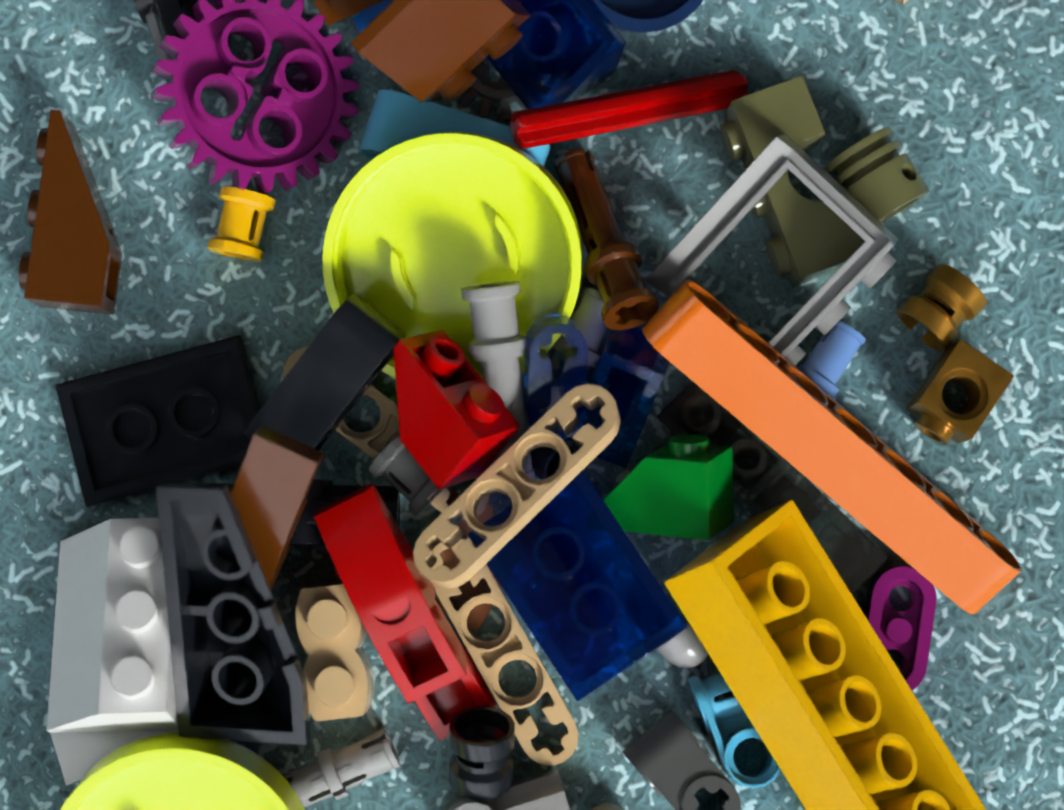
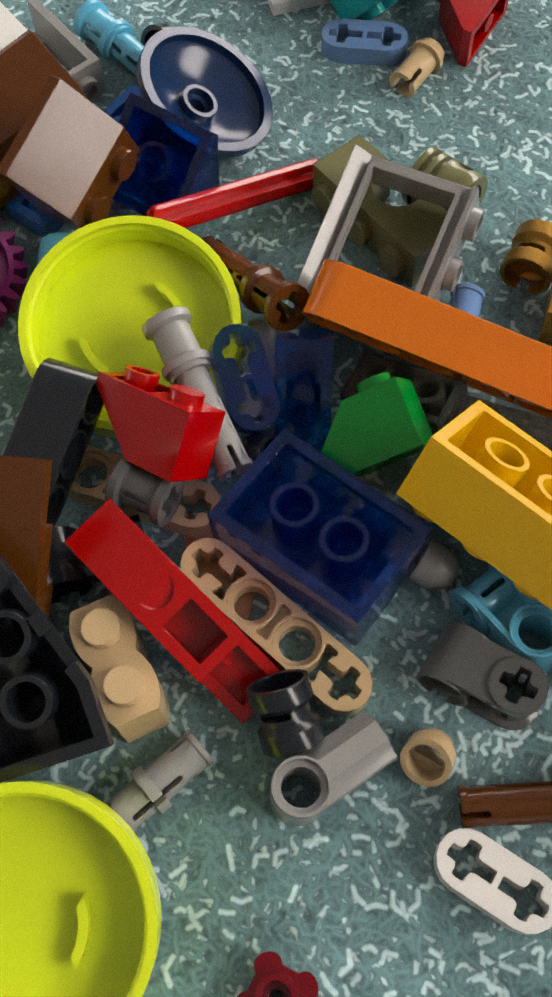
camera: 10 degrees left, 20 degrees down
(509, 477) = (230, 454): tan beam -> none

